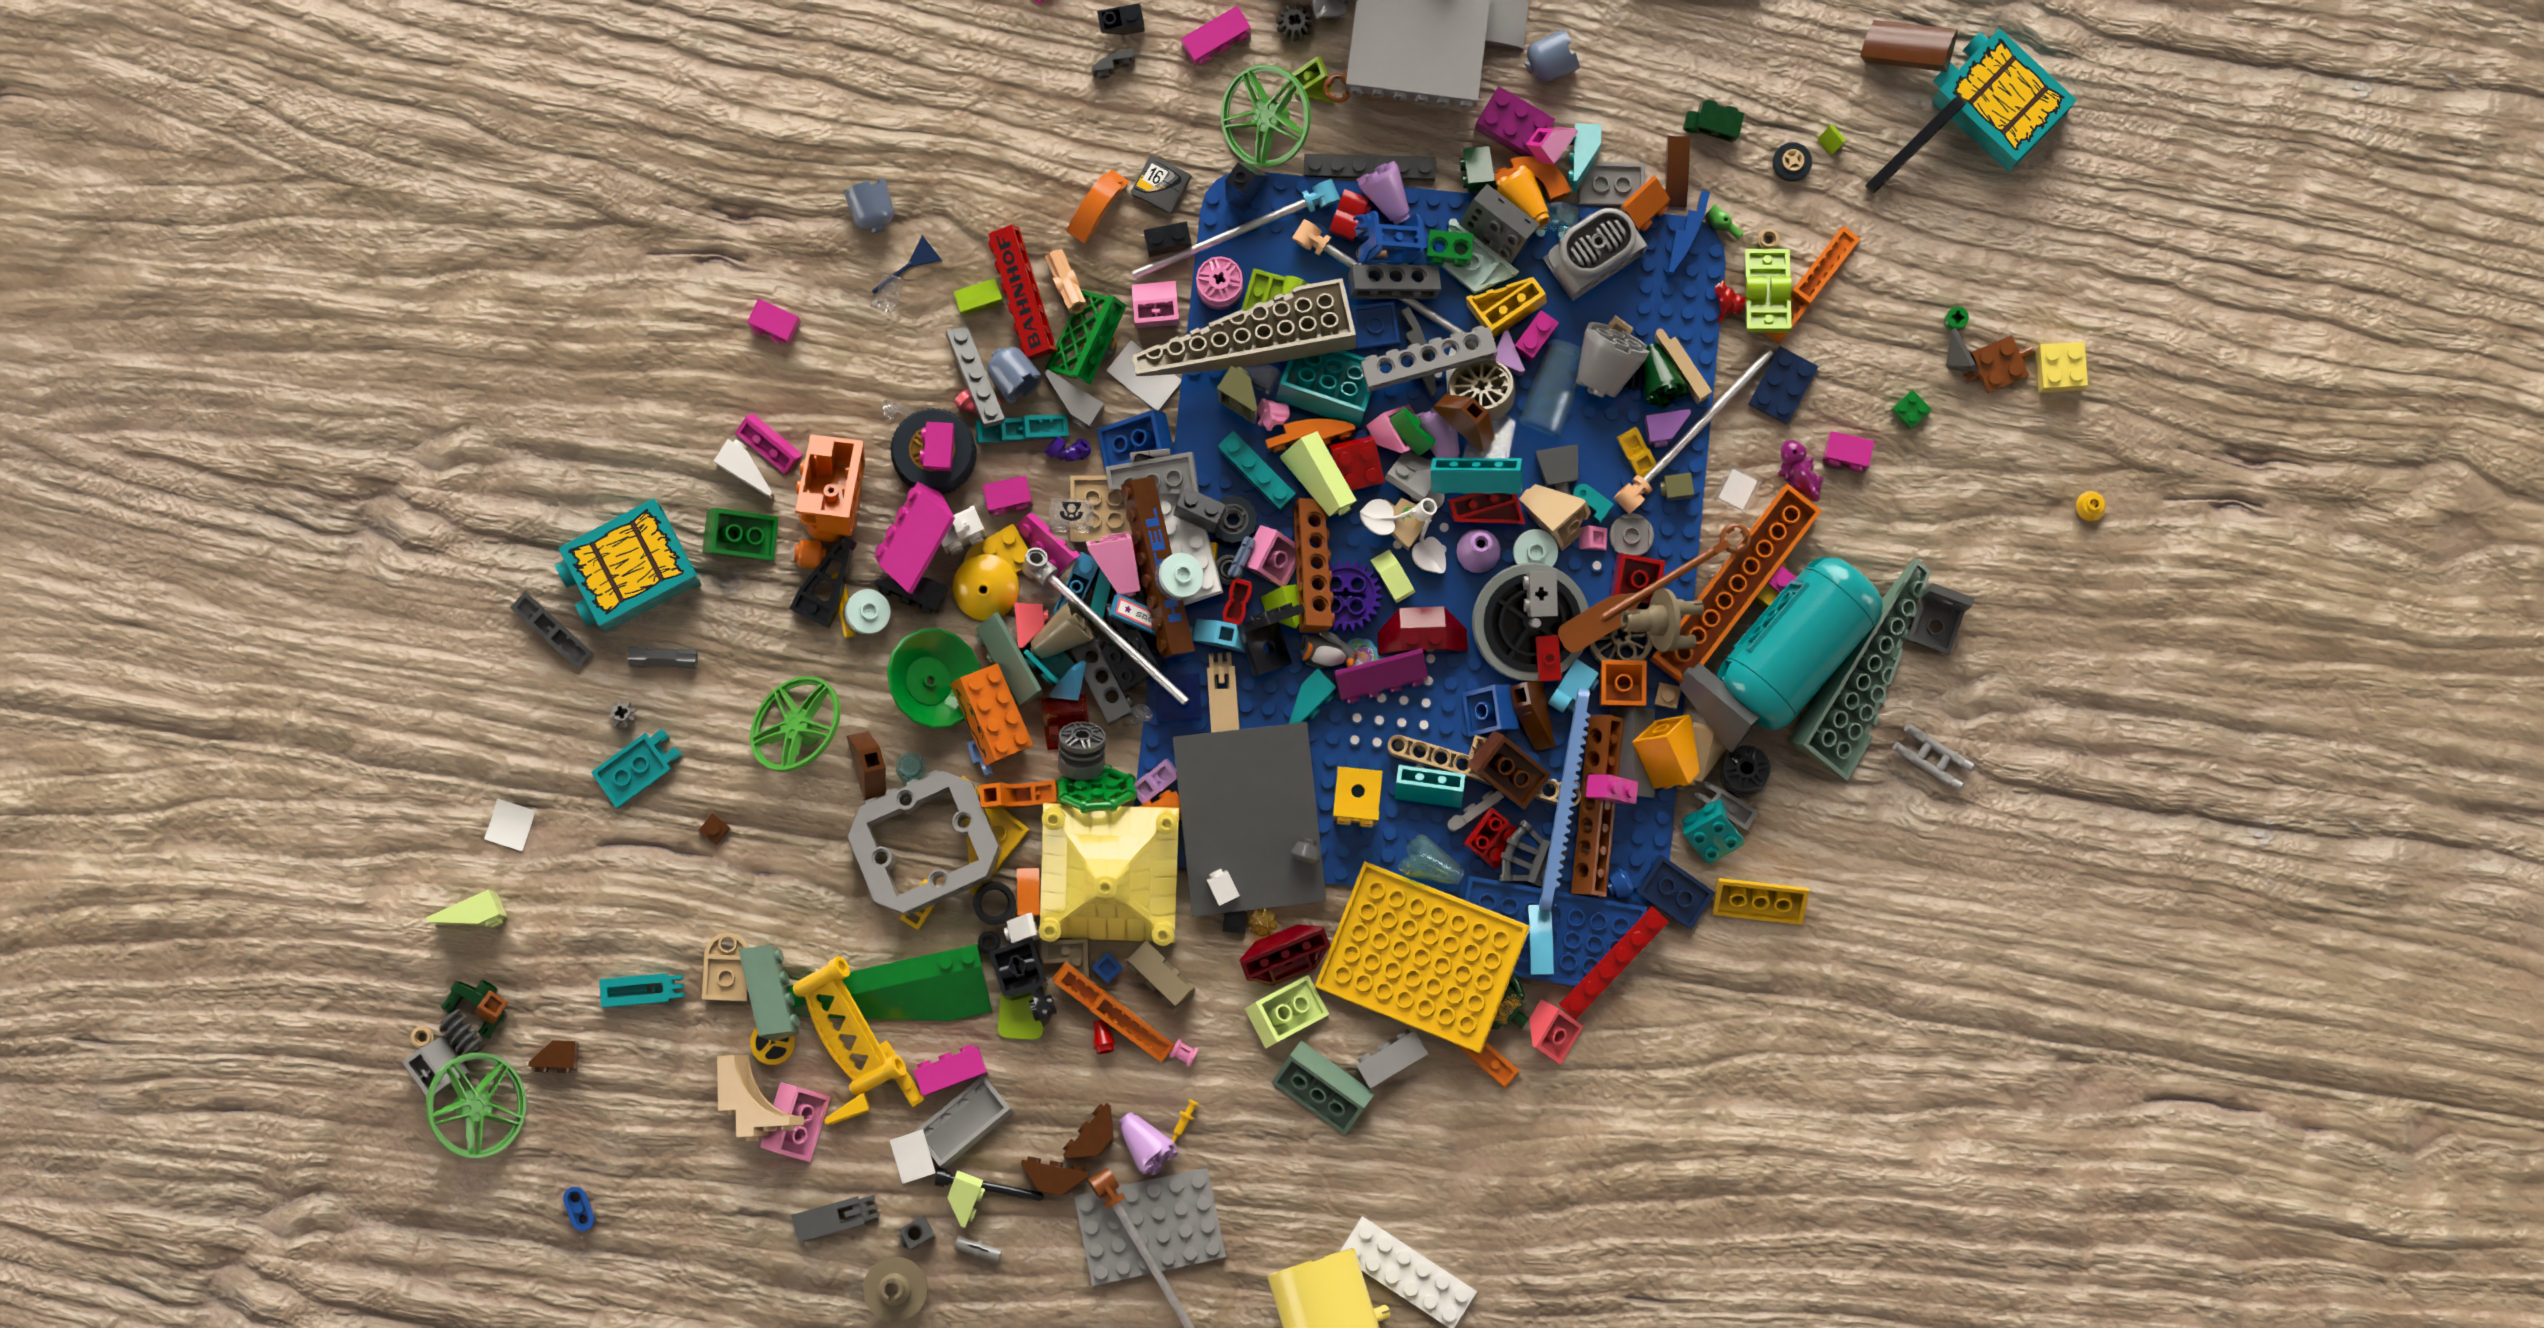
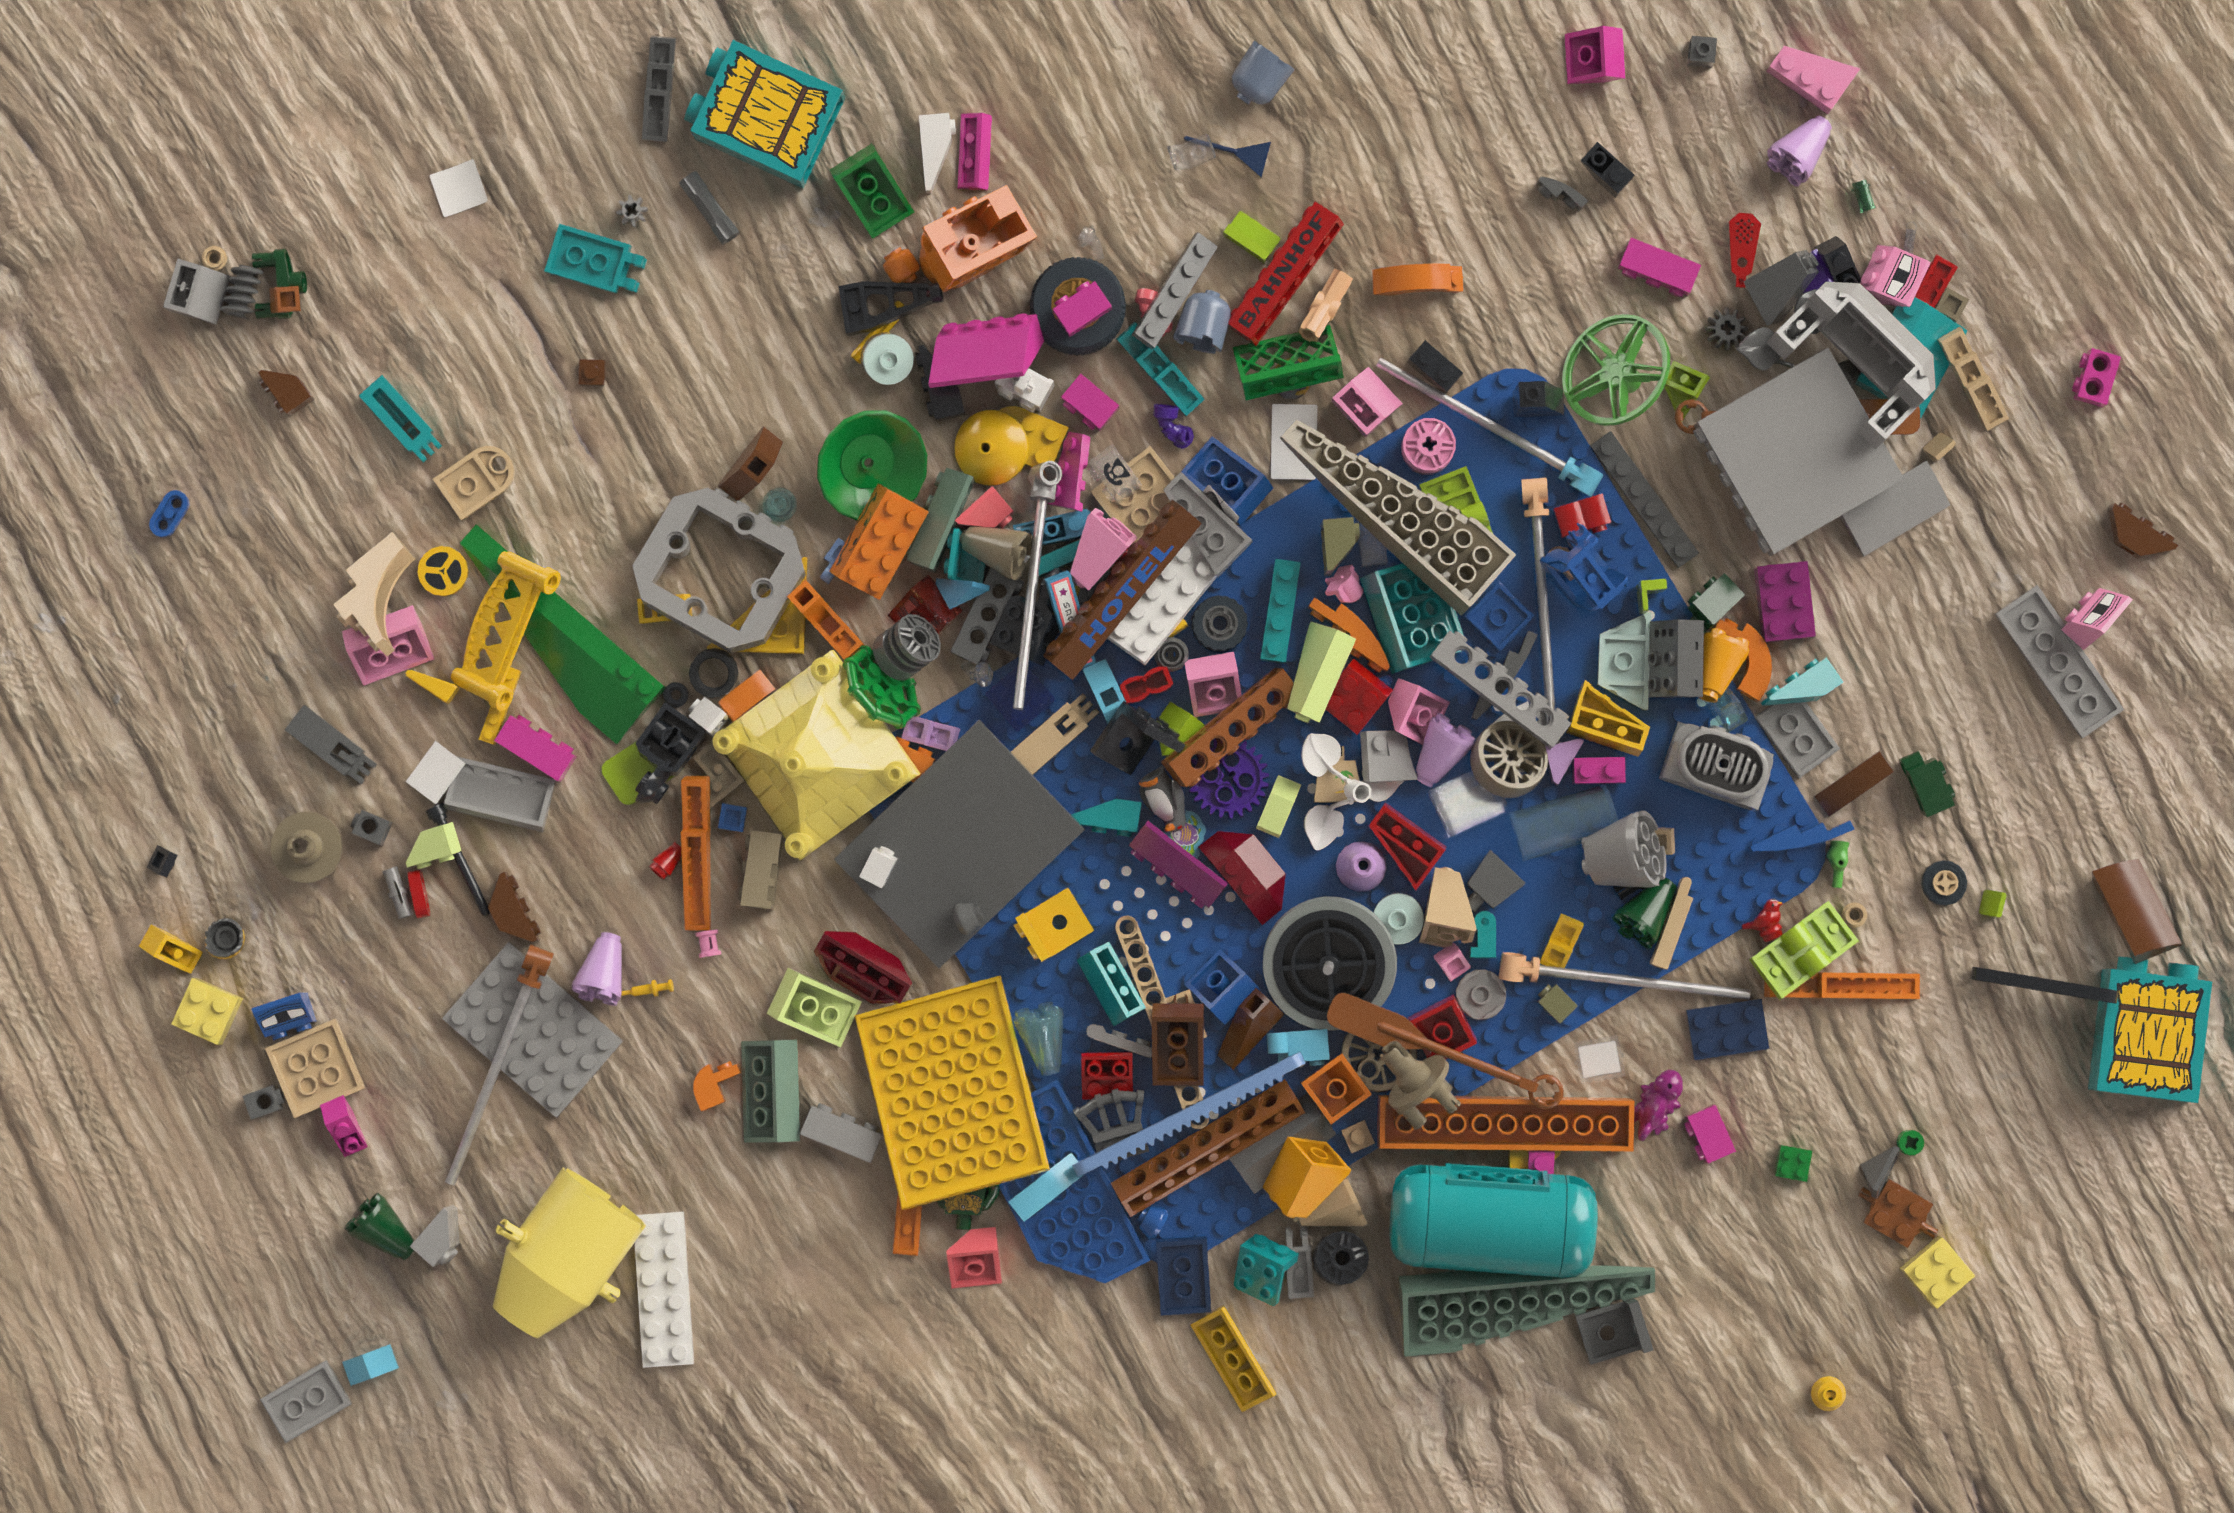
camera: 60 degrees right, 5 degrees up
(475, 1105) = (188, 353): bright green wheel -> none
(480, 910) = (359, 221): yellowish green slope -> none
(769, 992) = (482, 534): sand green slope -> none
(773, 321) = (1087, 69): dark pink brick -> none
(797, 724) = (736, 375): bright green wheel -> none
(990, 1234) = (419, 894): none -> red beam
(1080, 405) = (1221, 402): light grey slope -> none
(1093, 1136) = (574, 919): reddish brown slope -> none
(1161, 184) = (1482, 322): dark grey slope -> none
(1179, 576) = (1127, 615): light aqua piece -> none
(1199, 510) = (1202, 587): black piece -> none
(1235, 922) = (859, 901): black plate -> none
(1241, 557) = (1190, 657): sand blue axle -> none
(1262, 922) = (876, 926): clear yellow gear -> none
(1285, 1130) = (707, 1086): none -> orange brick
(1384, 288) = (1521, 579): dark grey brick -> none
(1386, 191) = (1629, 533): lavender cone -> none
(1408, 429) = (1421, 719): green slope -> none
(1433, 209) = (1648, 587): none -> lime panel
(1450, 241) = (1625, 627): green brick -> none
(1468, 419) = (1469, 767): reddish brown slope -> none
(1476, 475) = (1424, 814): teal brick -> none
(1547, 582) = (1353, 967): light grey brick -> none
(1548, 658) = (1307, 1003): red plate -> none
(1550, 143) = (1789, 649): dark pink slope -> none
(1551, 57) = (1871, 588): sand blue cylinder -> none
(1612, 789) = (1229, 1150): dark pink brick -> none
(1613, 962) = (1077, 1268): red plate -> none
(1646, 204) = (1796, 779): orange slope -> none
(1664, 426) = (1603, 950): medium lavender slope -> none
(1718, 706) = (1376, 1190): dark grey slope -> none
(1928, 744) = (1496, 1430): light grey piece -> none

